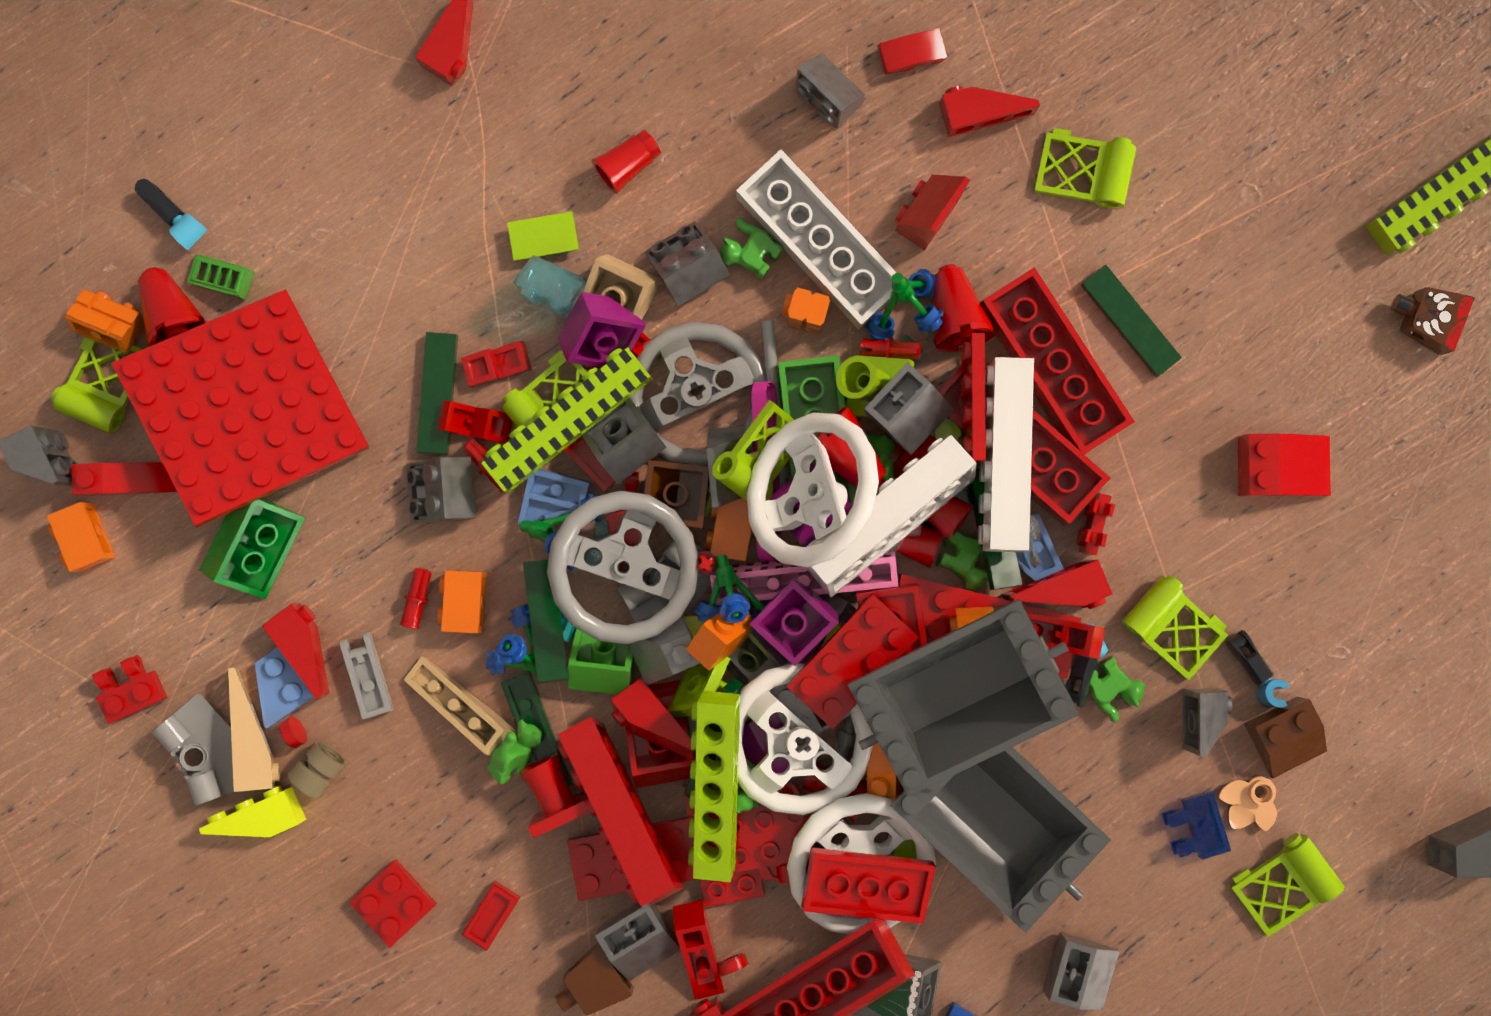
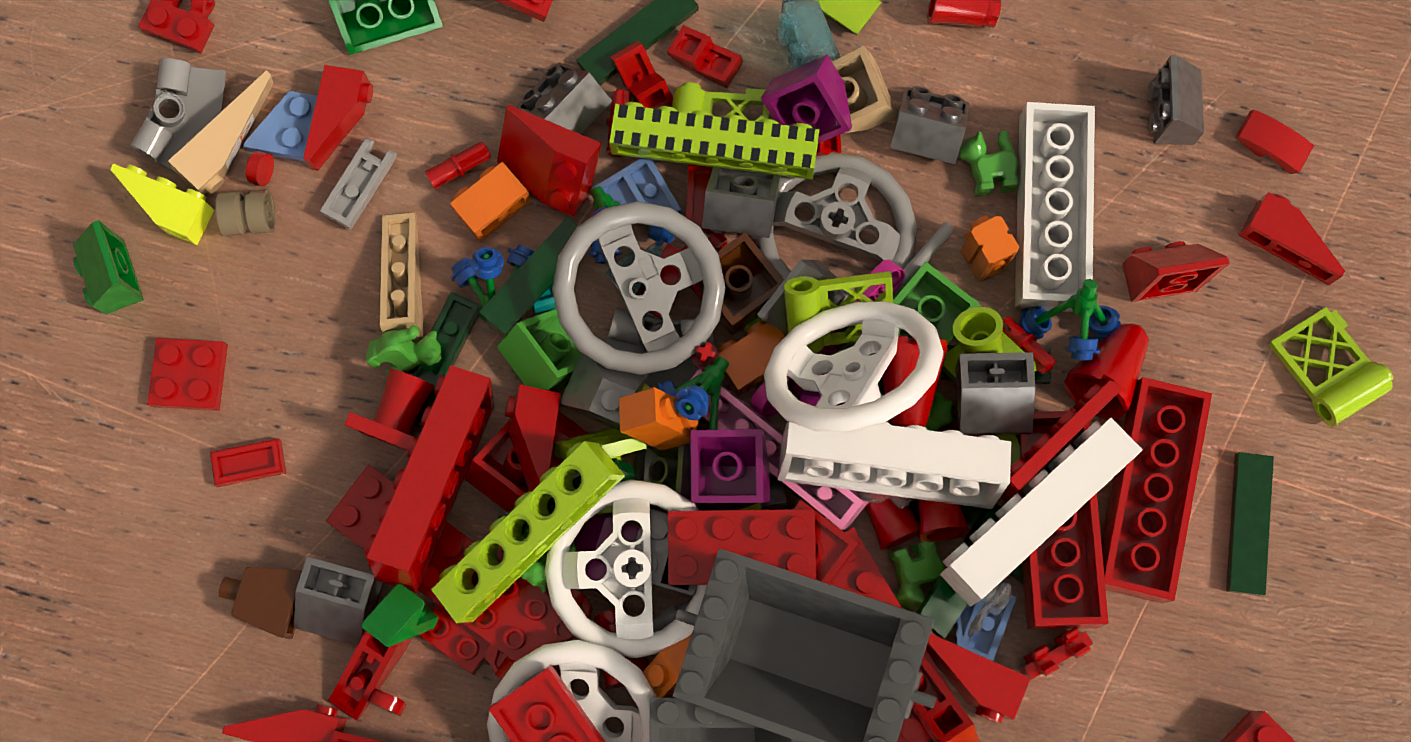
camera: 45 degrees right, 10 degrees down
(270, 896) = (106, 269): none -> green slope
(473, 539) = (549, 159): none -> red slope
(691, 913) = (399, 617): none -> green slope

